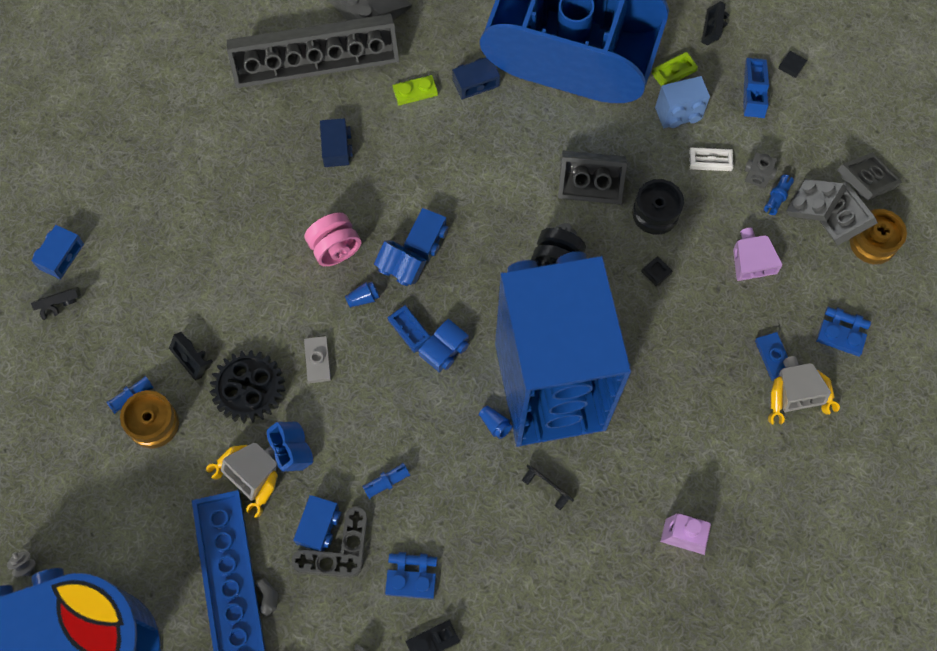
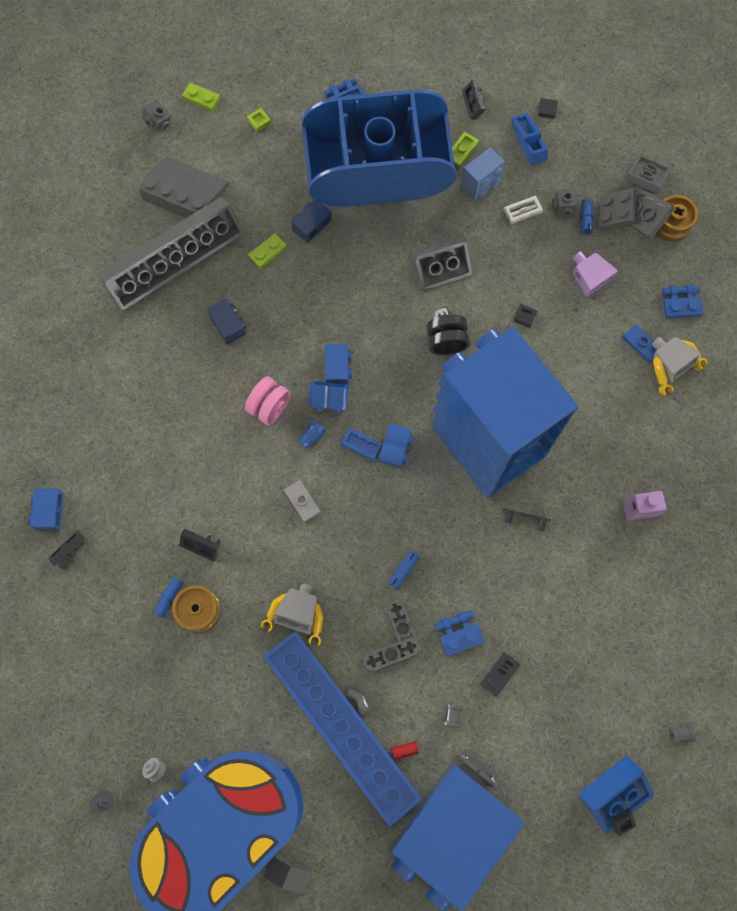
camera: 25 degrees left, 5 degrees up
(239, 404) = (260, 565): black gear -> none
(289, 446) = (317, 578): blue brick -> none
(317, 524) = (369, 628): blue brick -> none
(495, 422) = (464, 487): blue cone -> none
(657, 206) = (503, 265): black wheel -> none

